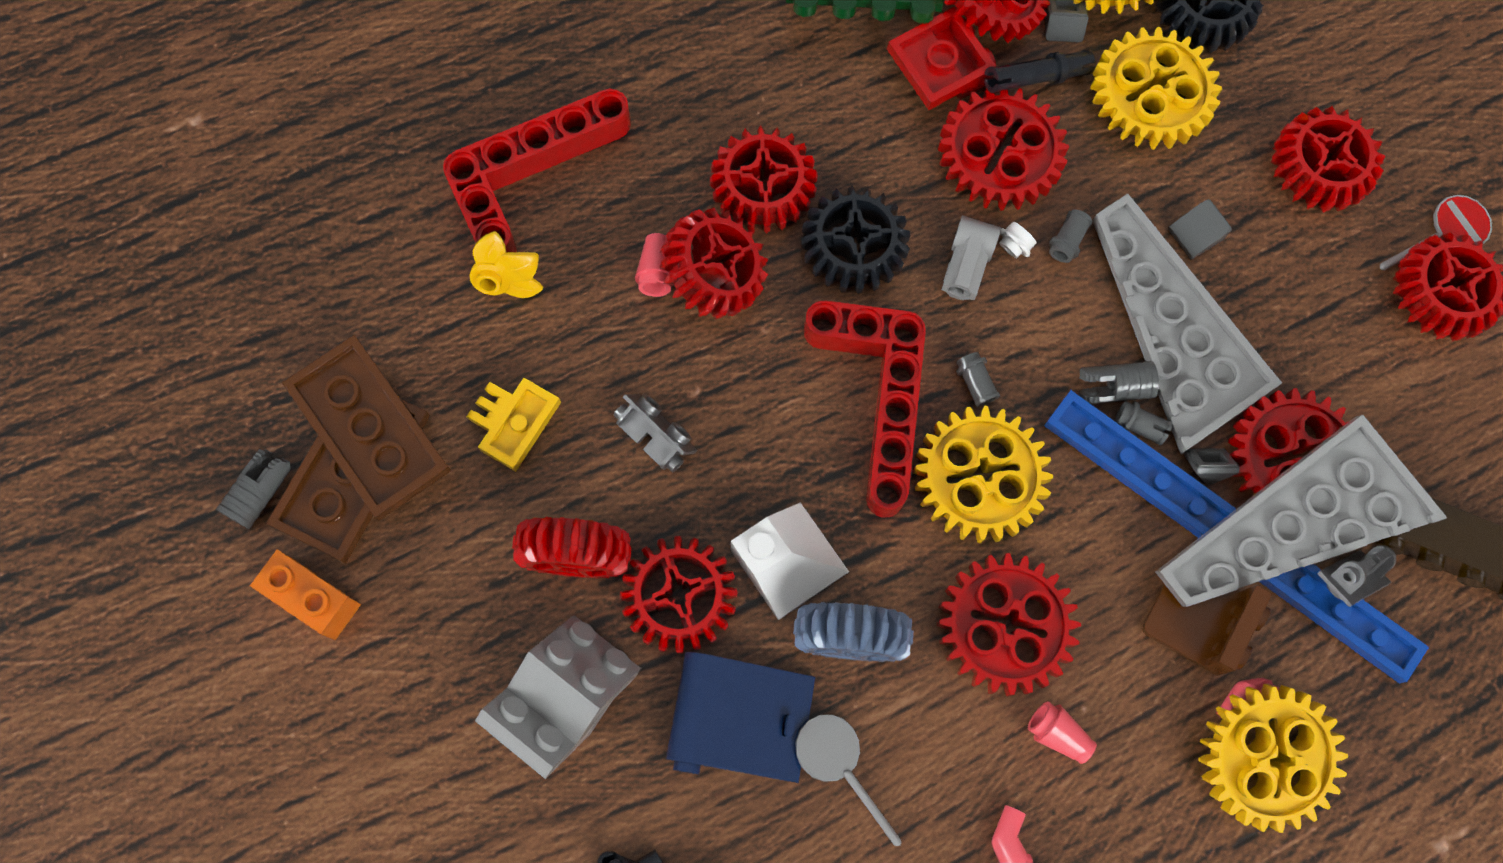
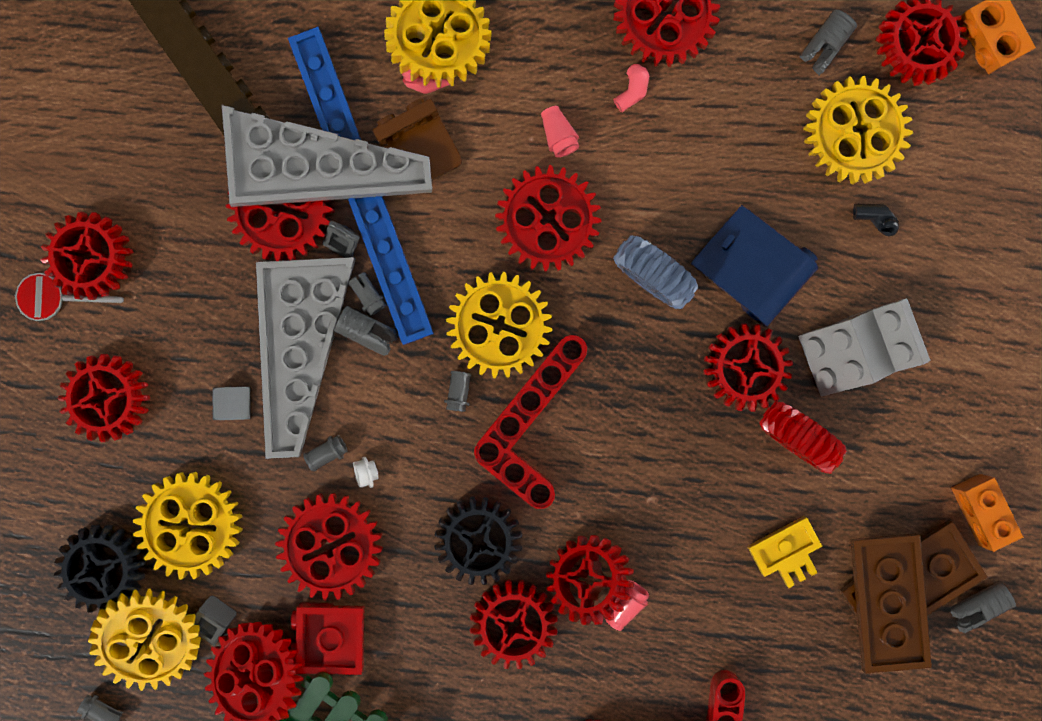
camera: 145 degrees left, 15 degrees up
(503, 272) = (741, 663): yellow plate -> none
(667, 439) = (698, 502): flat silver hinge -> none
(787, 559) = (661, 347): white slope -> none
(829, 752) = (709, 212): light grey piece -> none
(972, 250) = (402, 483): light grey piece -> none
(1052, 69) = (253, 584): black pin -> none
(1359, 574) = (301, 108): flat silver hinge -> none

